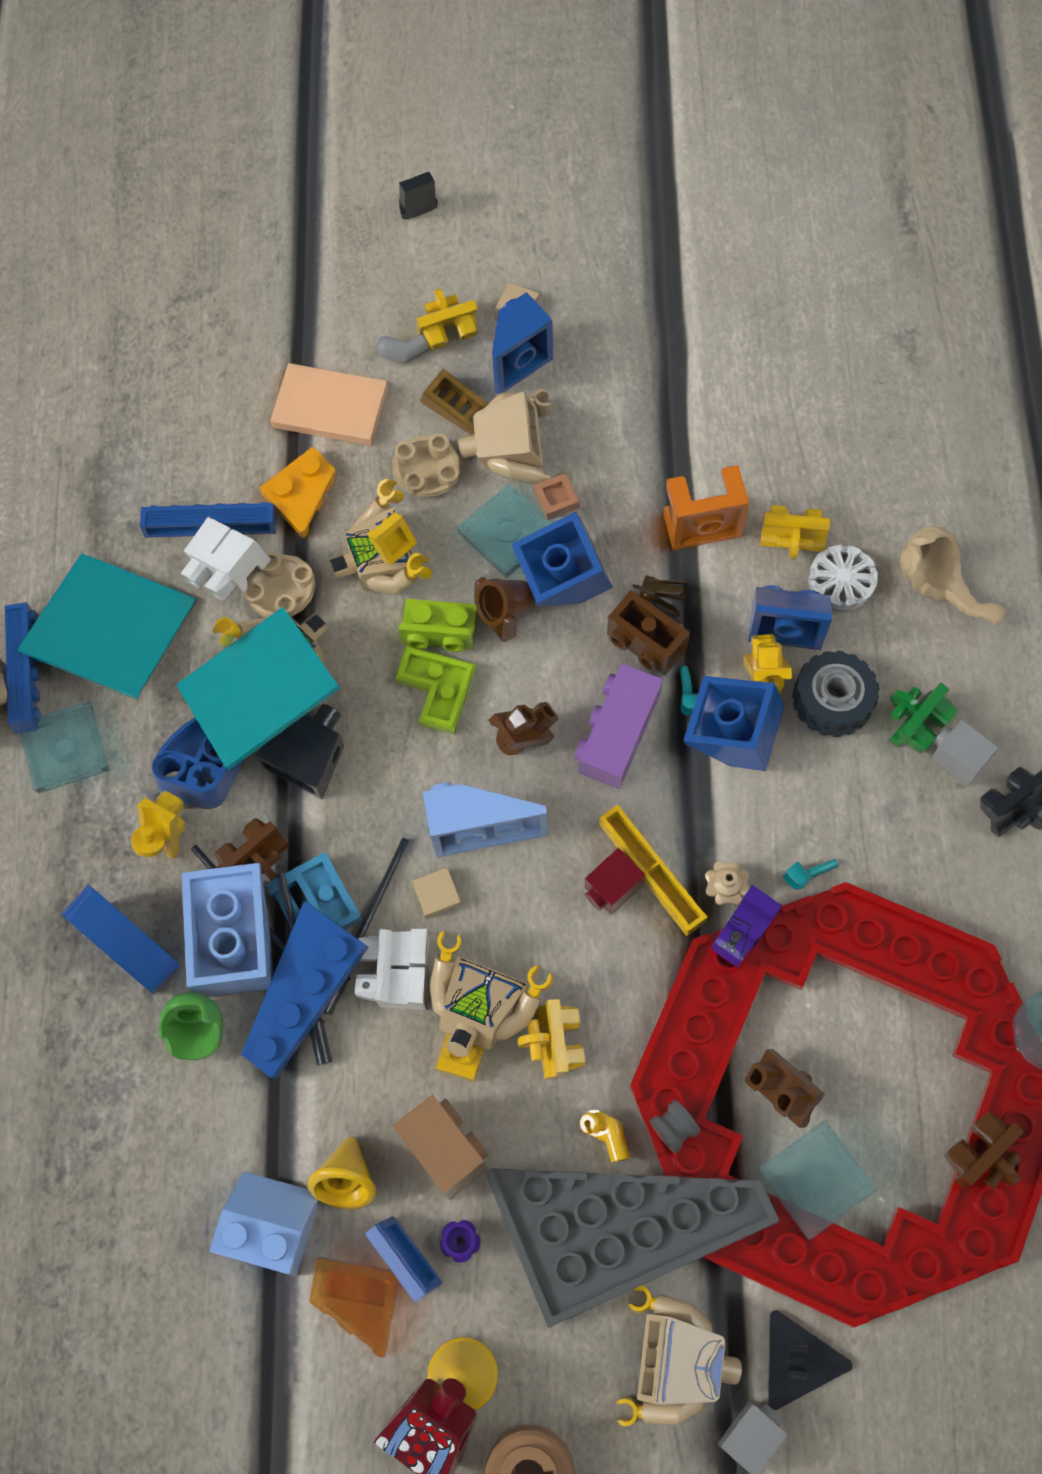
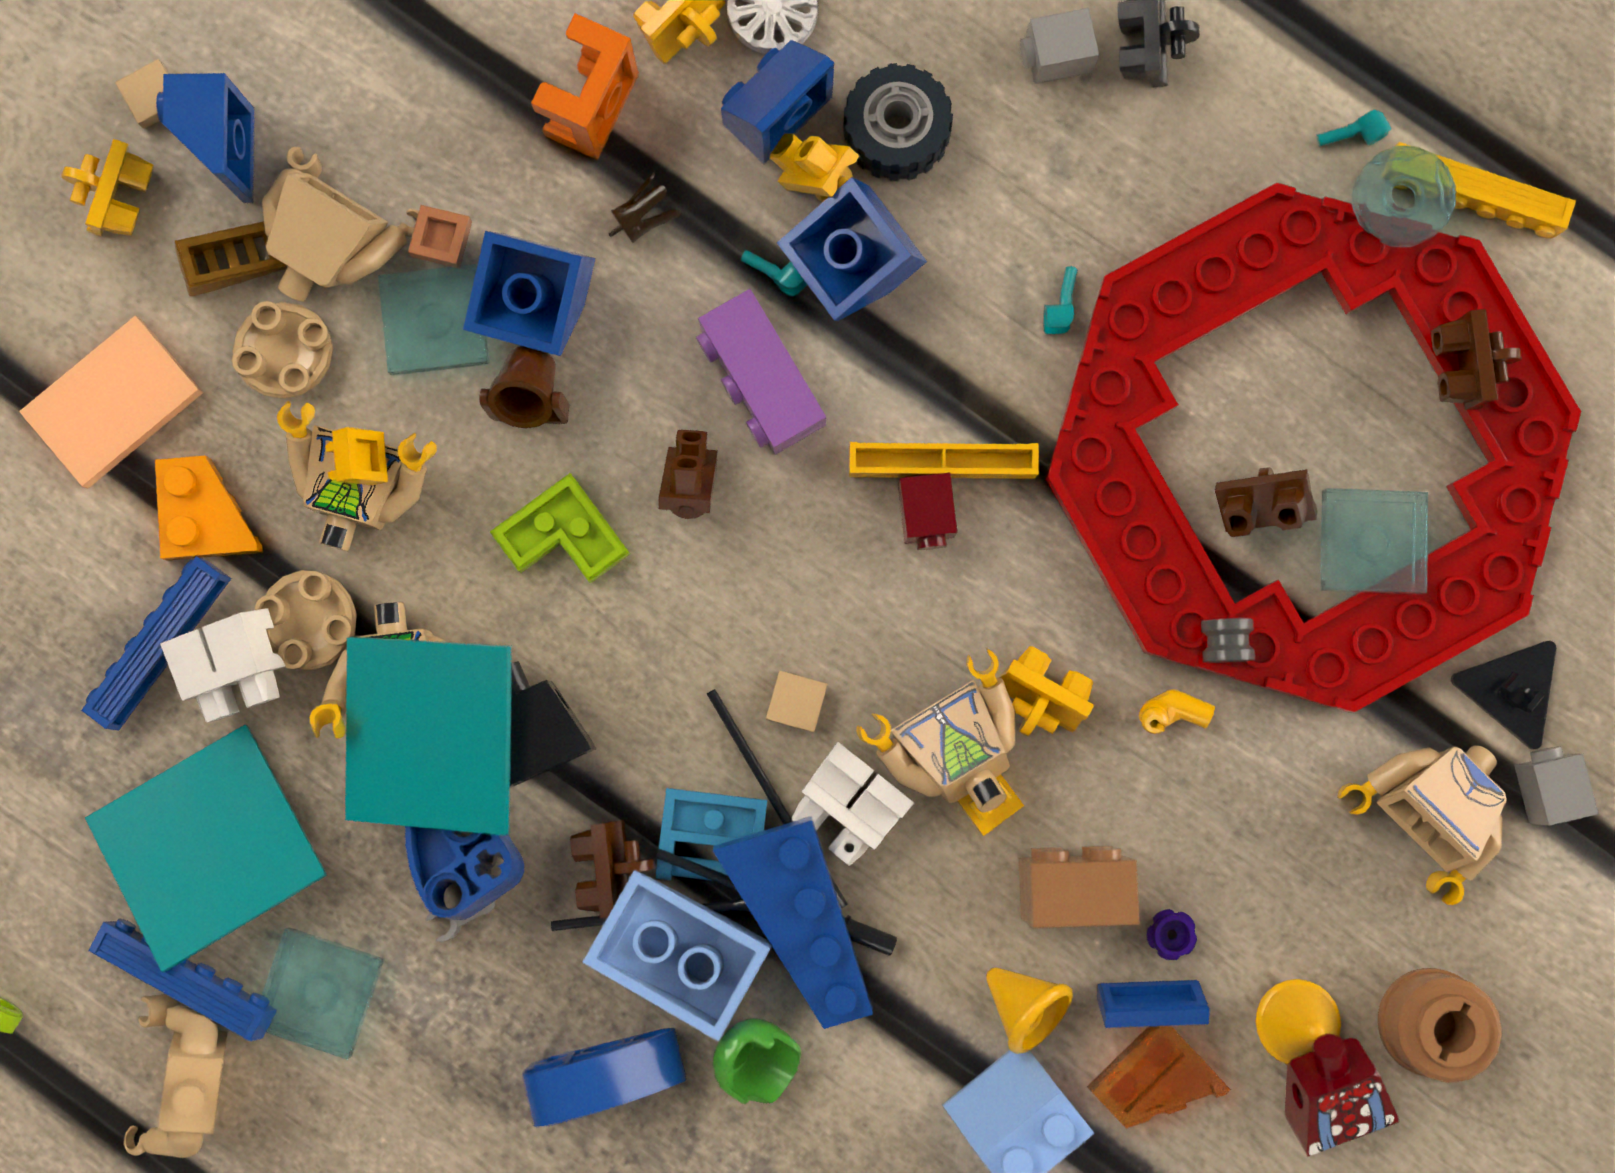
camera: 60 degrees left, 15 degrees up
(158, 826) = (505, 952): yellow hips -> none
(399, 350) = (104, 272): light grey arm -> none
(438, 625) = (491, 478): lime bracket -> none
(476, 819) = (752, 606): light blue slope -> none
(610, 1233) = (1279, 780): dark grey wing -> none
(647, 633) = (682, 263): reddish brown brick -> none
(727, 883) = (1014, 395): tan plant -> none
(746, 926) = (1081, 413): dark purple leg -> none
(912, 730) = (981, 60): green hips -> none

